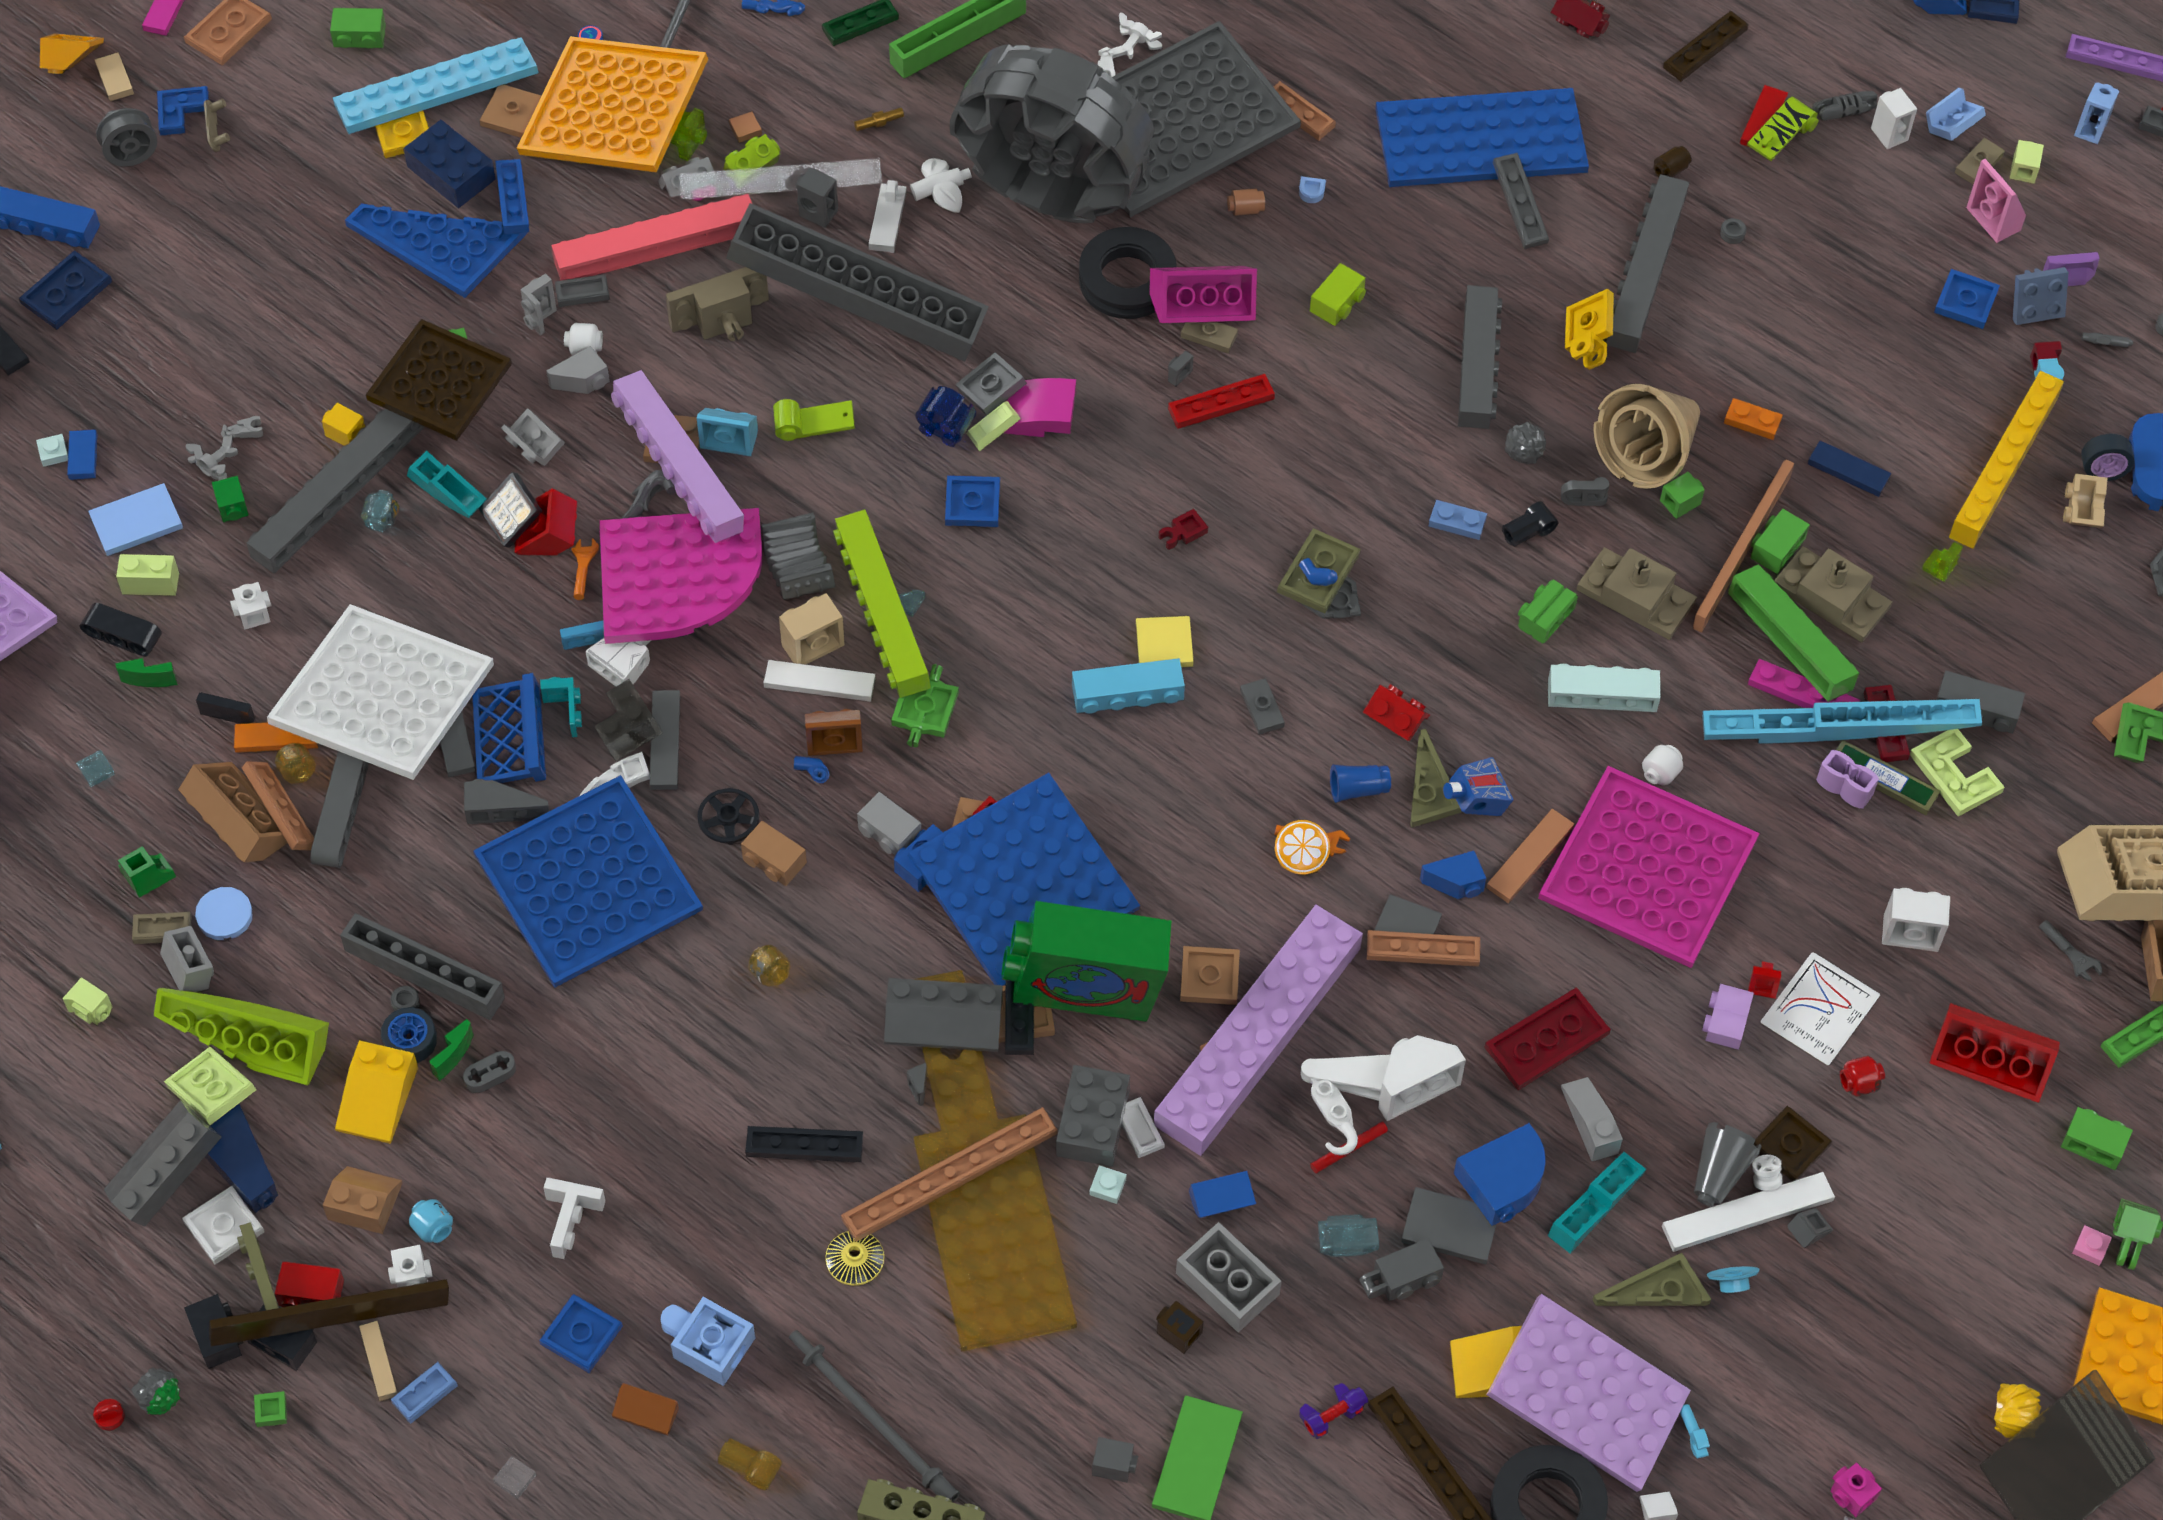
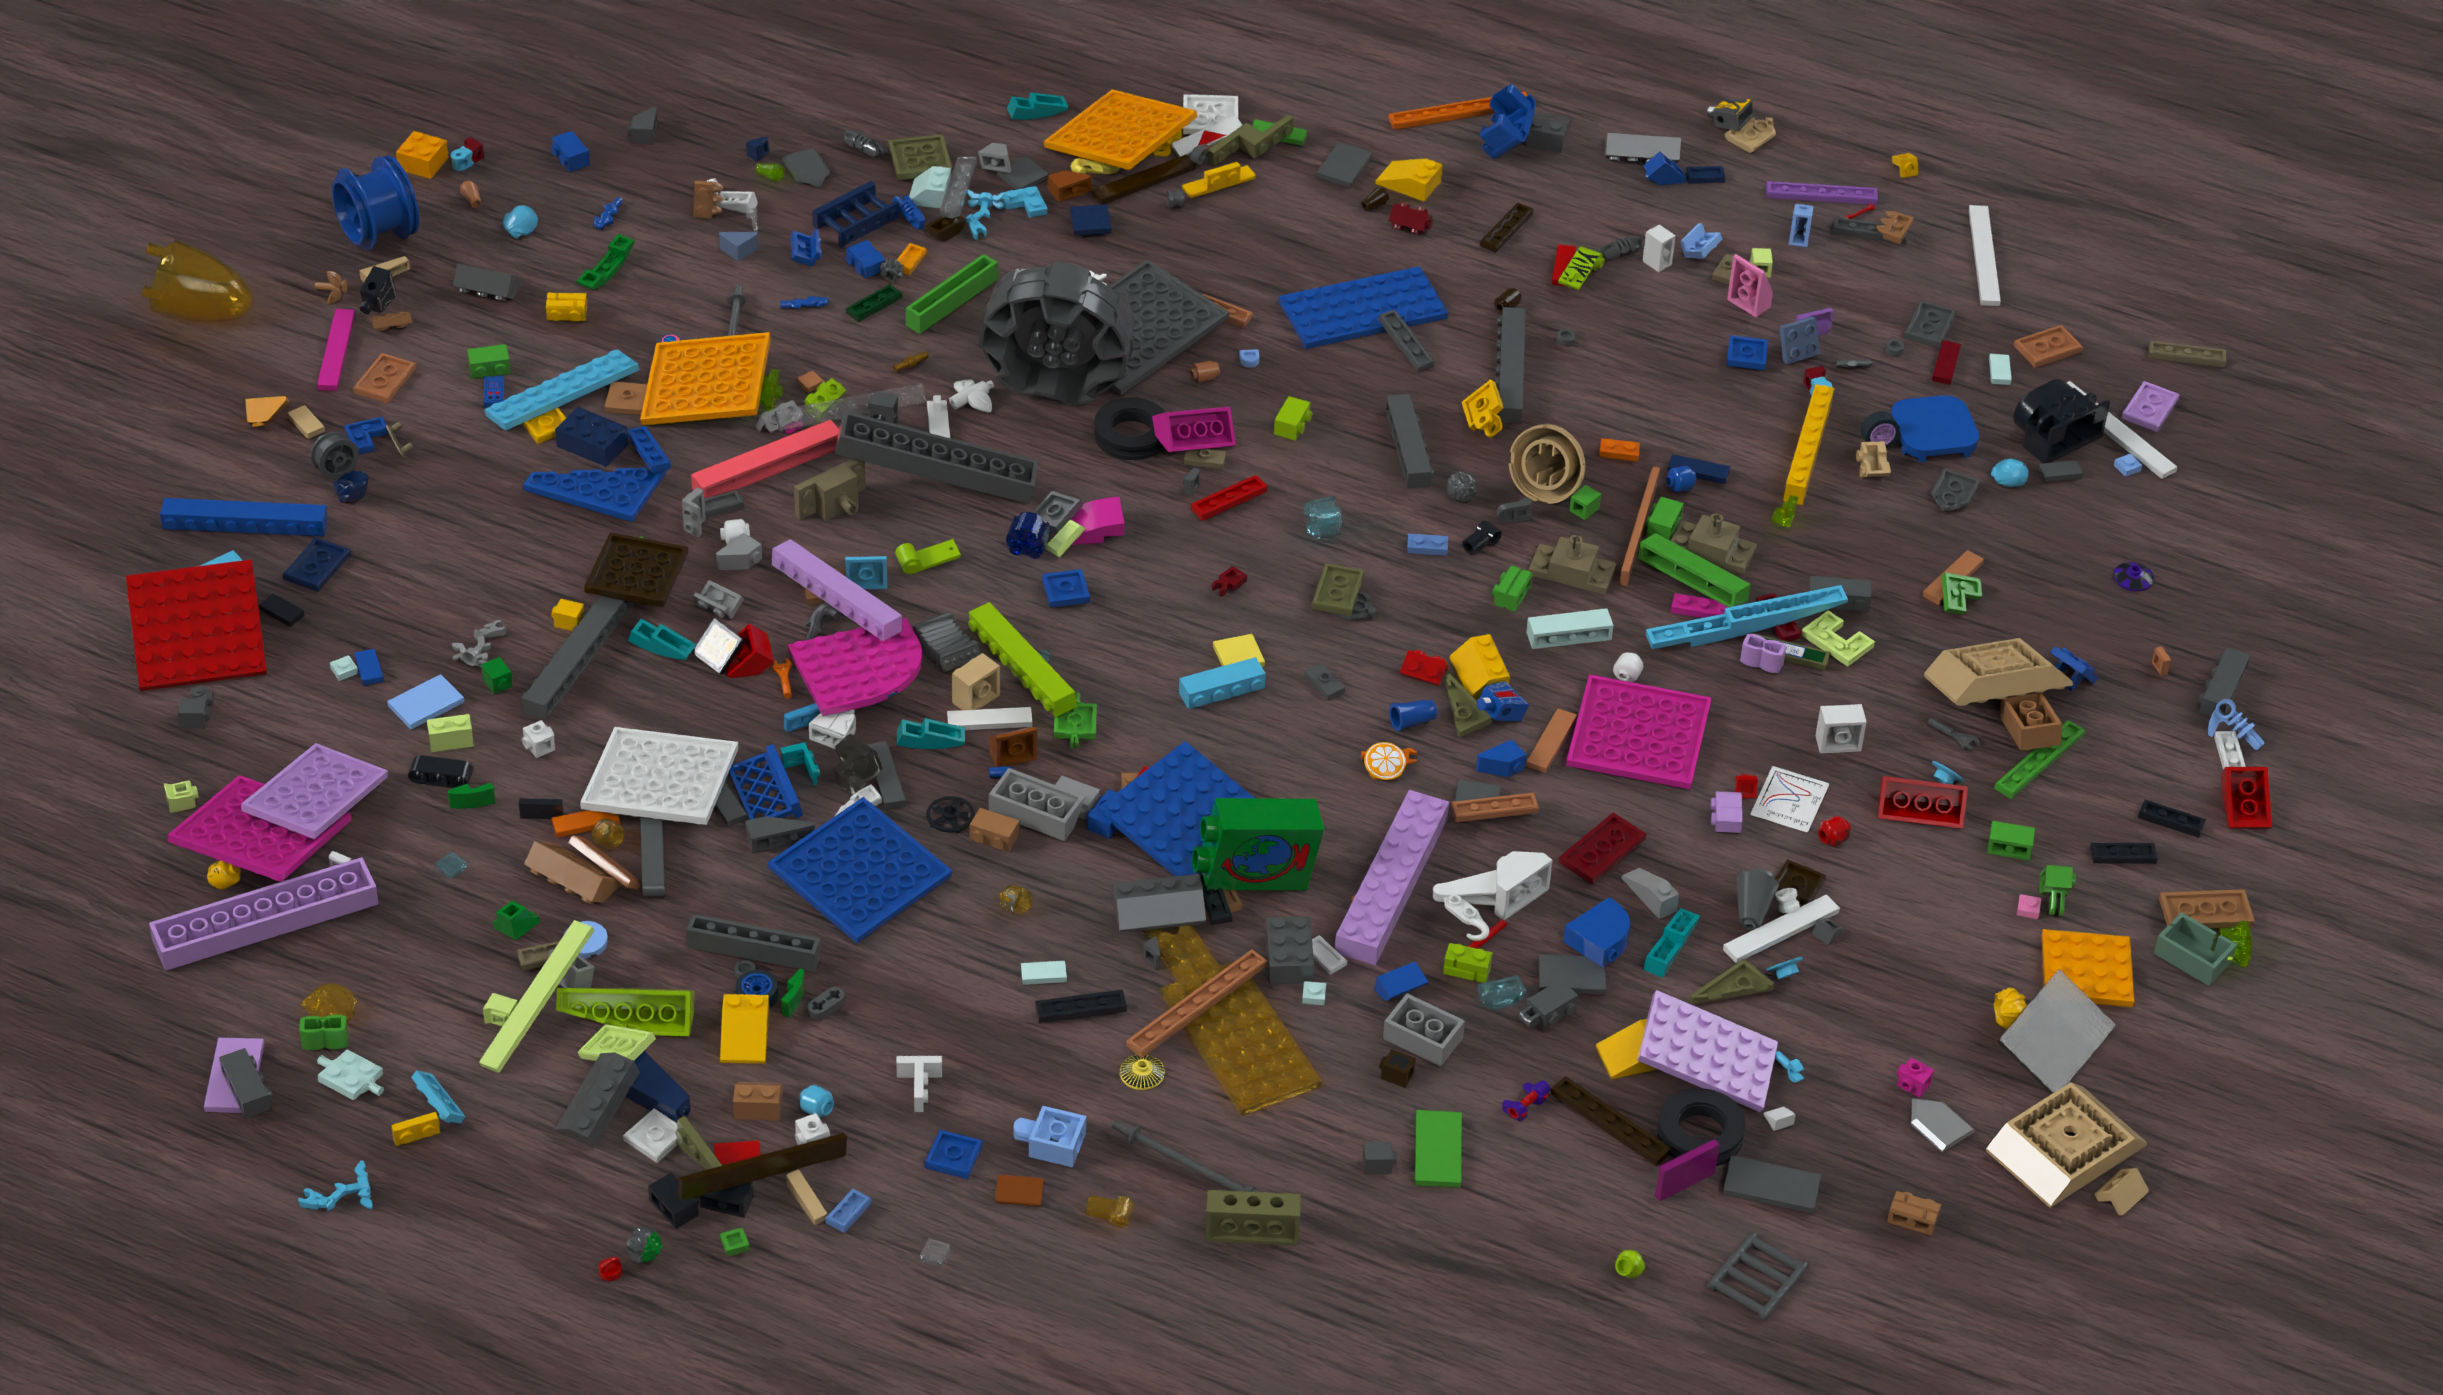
camera: 15 degrees left, 15 degrees down
(130, 996) = (536, 996): none -> yellowish green tile
(135, 185) = (351, 486): none -> dark blue hair
(353, 71) = (493, 390): none -> blue tile
(379, 511) = (616, 664): clear light blue head -> none
(736, 692) = (929, 735): none -> teal slope
(774, 1081) = (1043, 972): none -> light aqua tile
(834, 827) = (1036, 804): none -> light grey slope
(1210, 975) = (1345, 851): medium nougat plate -> none
(1317, 1183) = (1467, 963): none -> lime brick
(1318, 576) = (1339, 590): blue arm -> none
(1330, 459) = (1323, 517): none -> clear light blue brick
(1467, 725) = (1478, 664): none -> yellow slope
(1819, 483) = (1681, 479): none -> blue head
(2038, 1018) = (1945, 774): none -> medium azure piece

